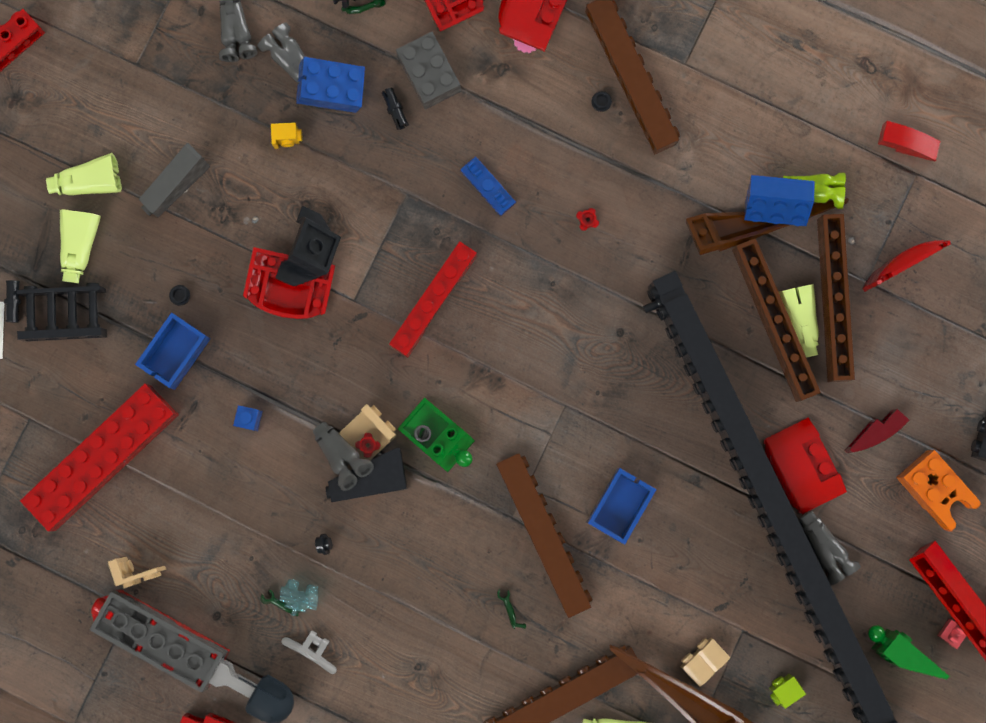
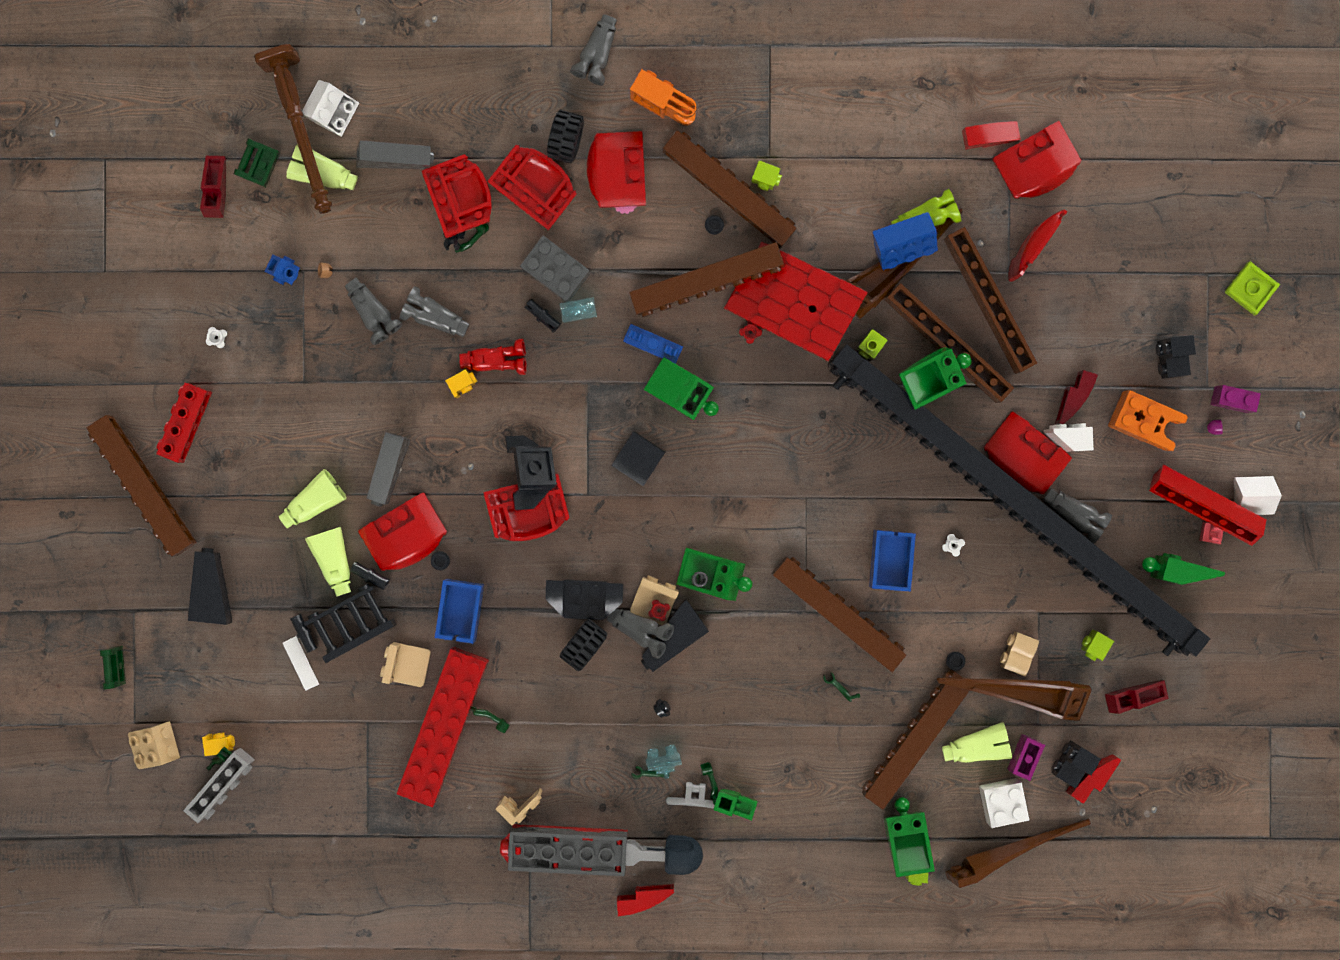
camera: 25 degrees left, 5 degrees up
(94, 379) = (405, 664): none -> tan bracket
(104, 276) = (369, 575): none -> black pin
(158, 253) = (404, 534): none -> red slope
(159, 484) = (502, 726): none -> dark green piece
(247, 418) = (548, 636): blue brick -> none
(276, 442) = (583, 645): none -> black tyre
(299, 397) = (584, 598): none -> black piece
(329, 127) = (494, 358): none -> red piece
(330, 85) = (479, 322): blue piece -> none
(338, 627) = (707, 770): none -> dark green piece
(349, 675) = (732, 802): none -> green brick
(414, 283) = (638, 458): none -> black slope
(431, 118) = (578, 310): none -> clear light blue hips
(432, 299) = (654, 463): red arch -> none
(491, 238) = (678, 387): none -> green slope
(569, 147) = (706, 279): none -> reddish brown brick
(634, 194) = (783, 302): none -> red piece
(637, 638) = (955, 661): none -> black plate
(673, 78) = (766, 176): none -> lime brick
(688, 527) = (948, 545): none -> white plate
(699, 286) = (871, 345): none -> lime brick
(744, 342) = (932, 378): none -> green slope
(801, 309) = (965, 323): yellowish green piece -> none
(855, 470) = (1074, 438): none -> white slope
(943, 190) = (1038, 162): none -> red slope

